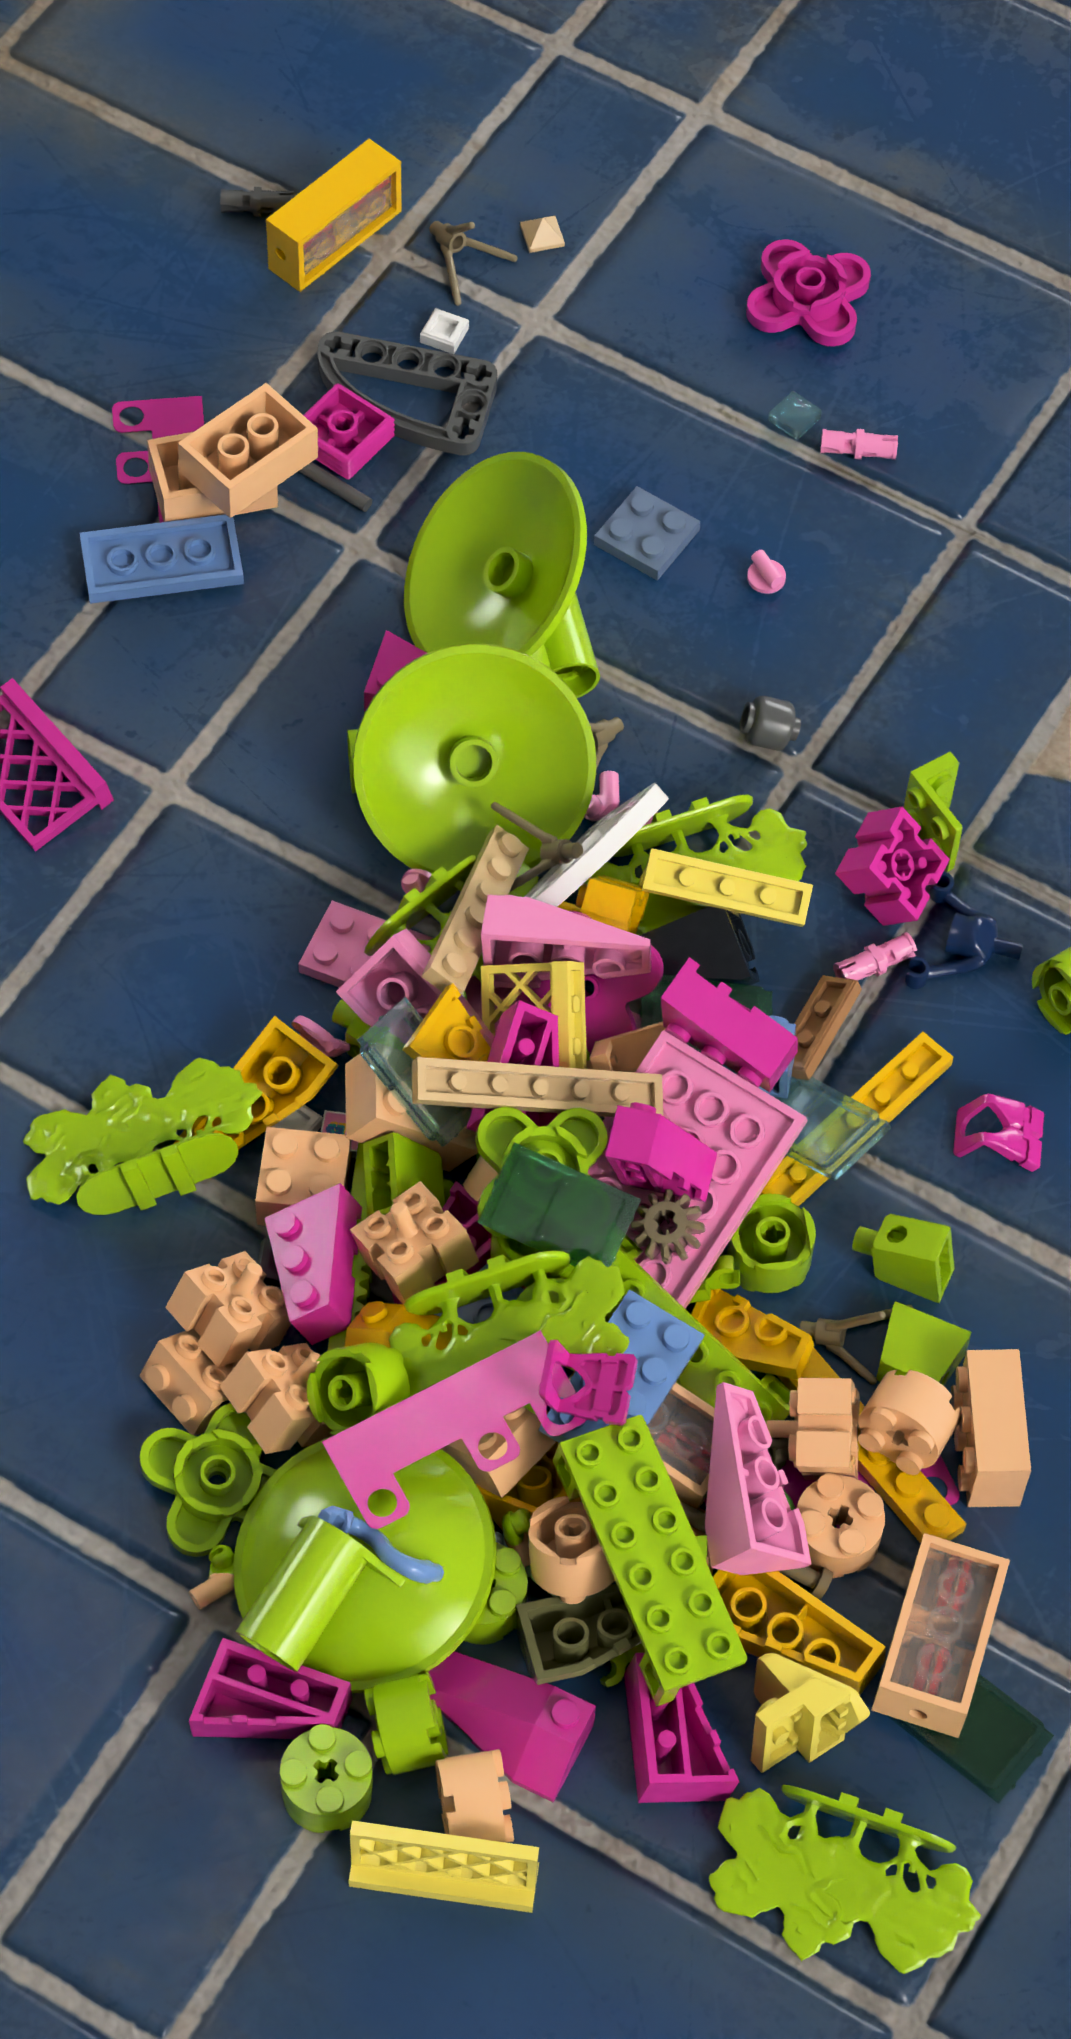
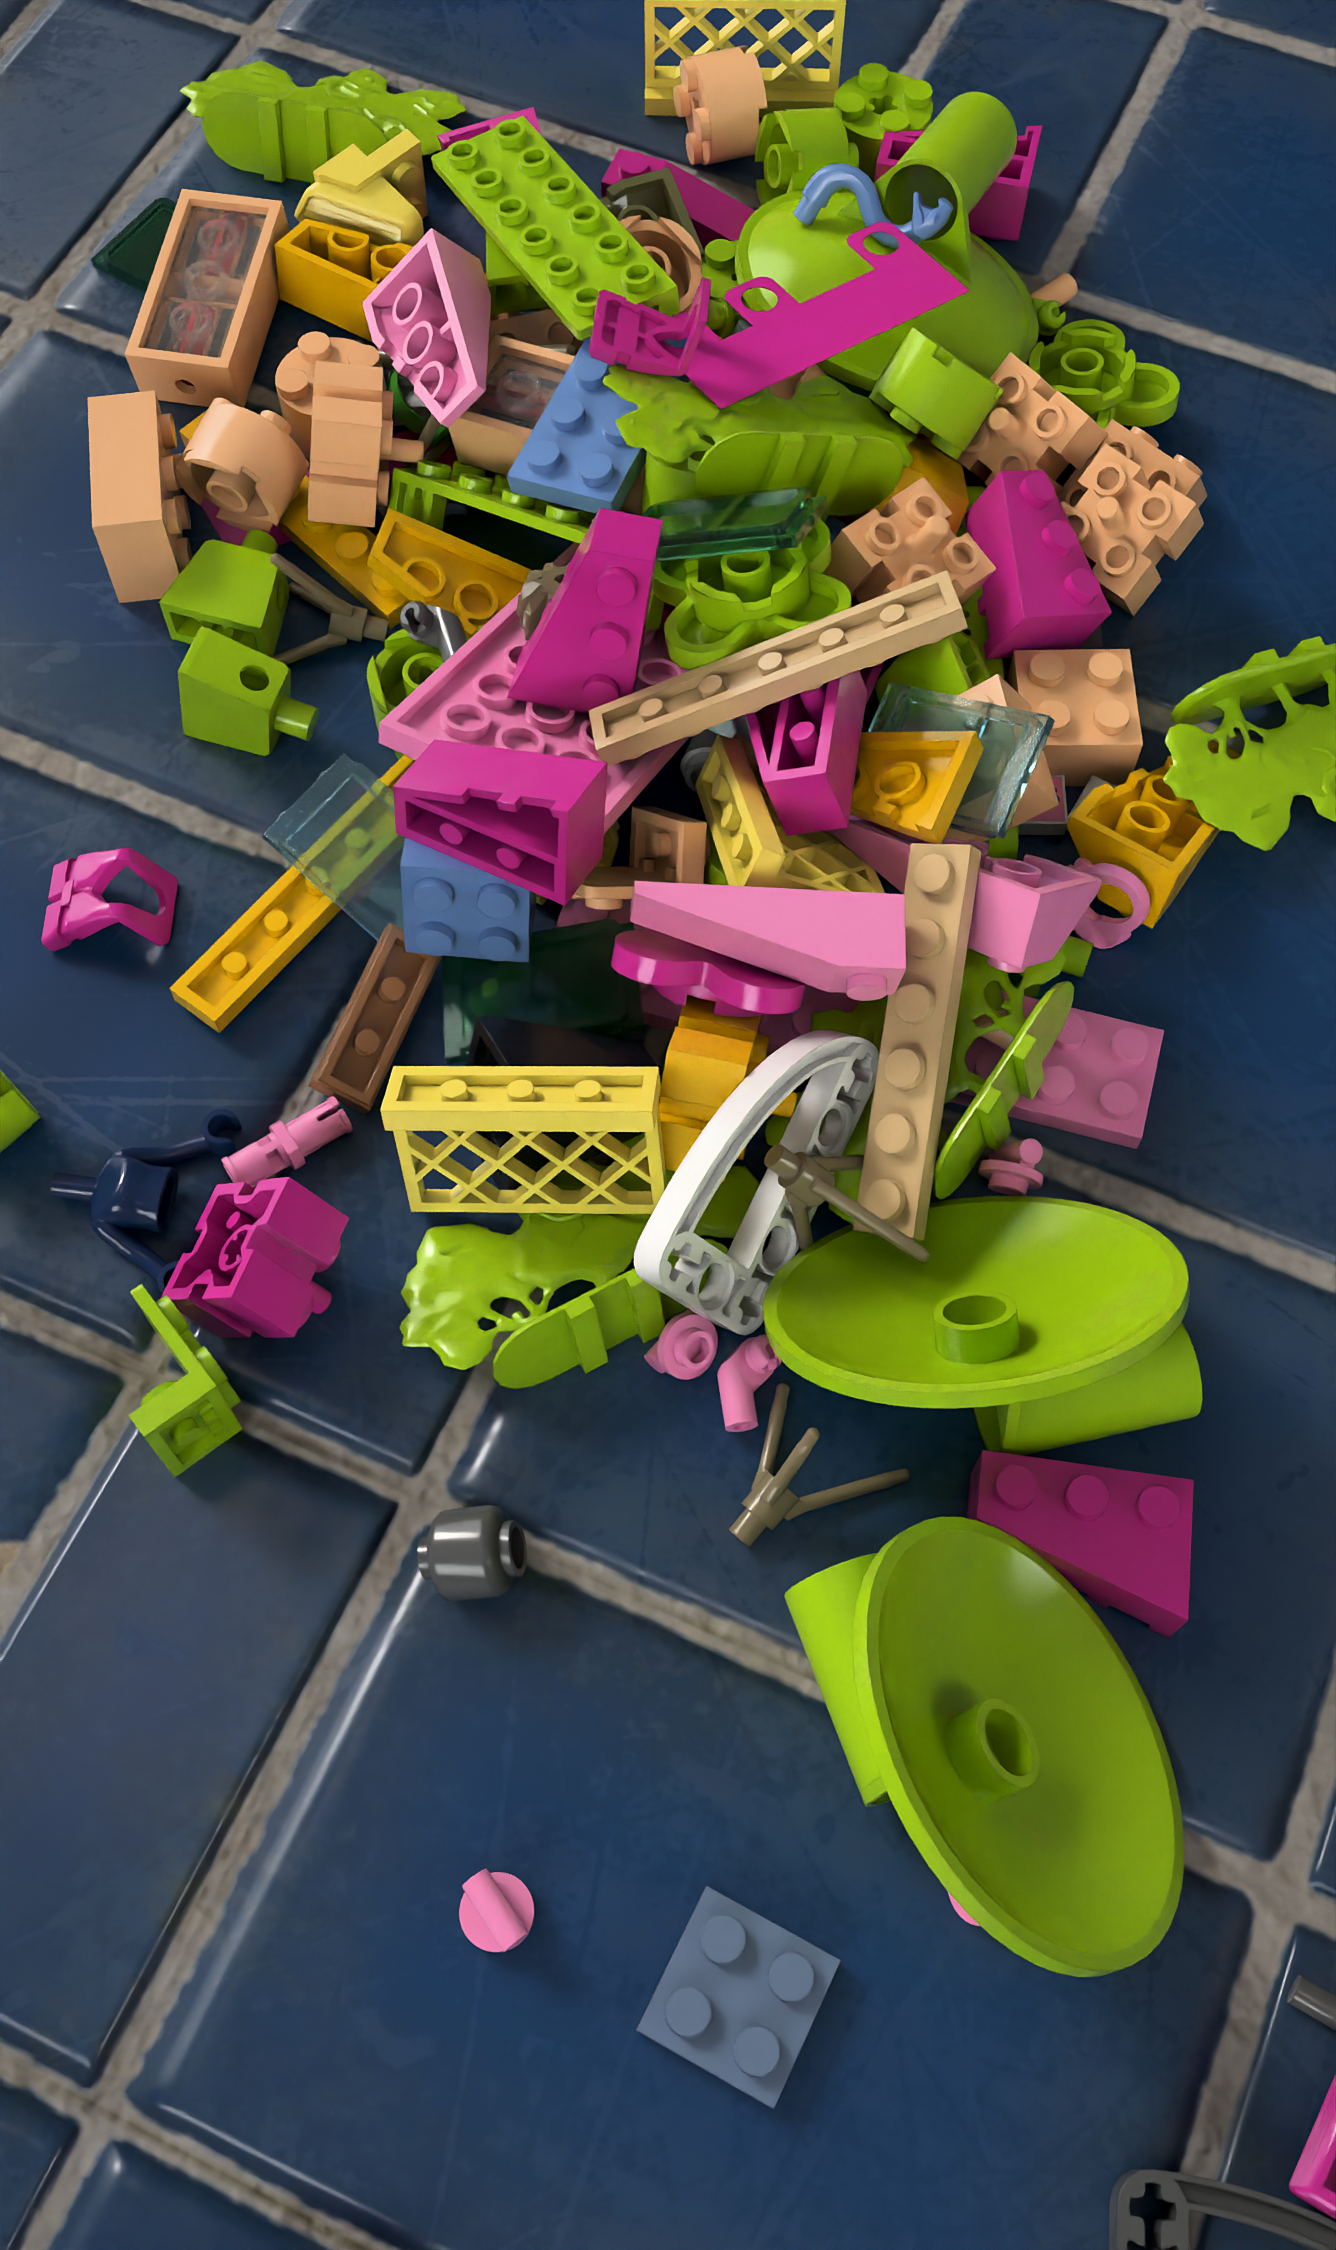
camera: 175 degrees right, 5 degrees up
(766, 1253) = (433, 627): none -> dark grey arm

